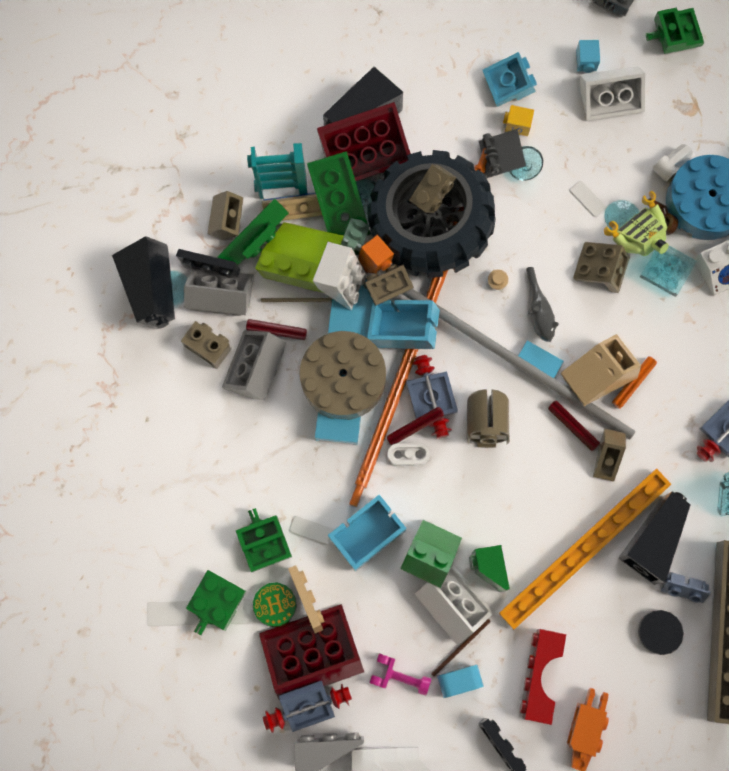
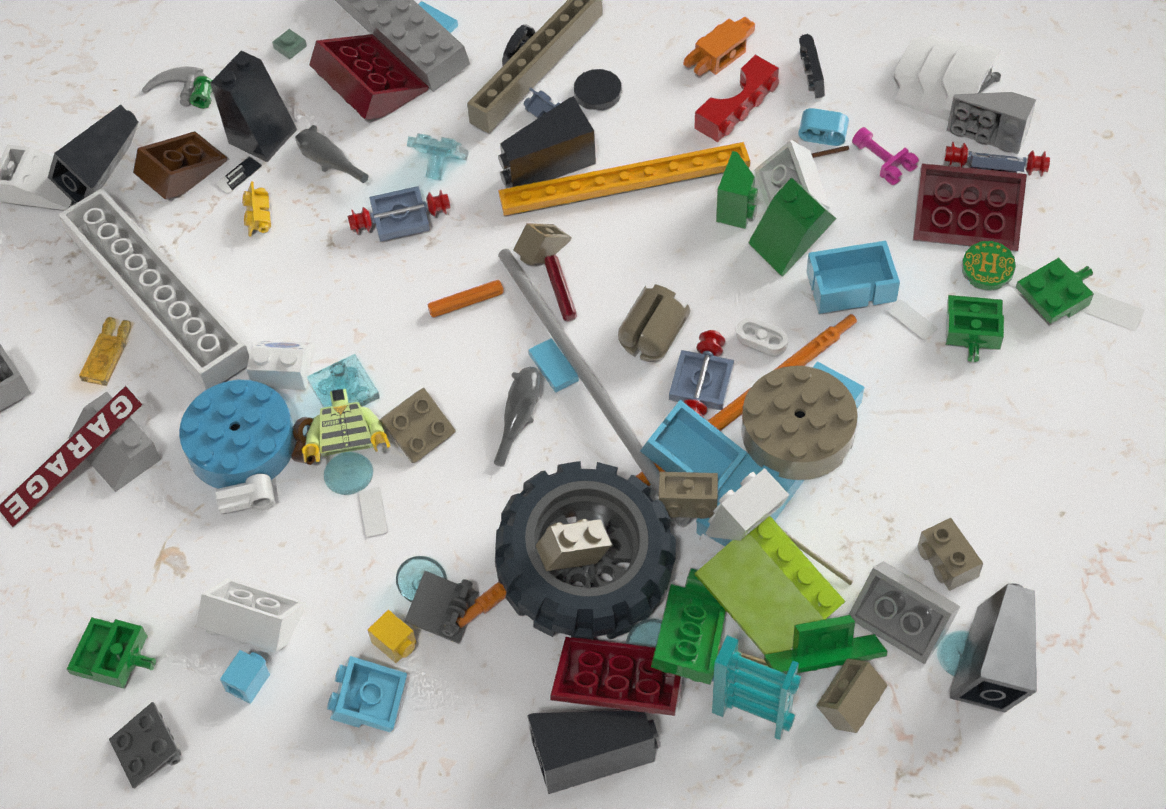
camera: 150 degrees left, 20 degrees down
(208, 263) = (904, 646): black plate -> none
(254, 364) = (899, 505): light grey slope -> none
(277, 329) = (850, 535): dark red axle -> none
(307, 598) = (951, 248): tan plate -> none
(355, 234) = (699, 565): sand green hinge -> none
(375, 256) = (689, 529): orange slope -> none
(415, 426) = (739, 353): dark red axle -> none
(498, 279) = (544, 462): tan plate -> none
(602, 370) = (496, 312): tan slope -> none

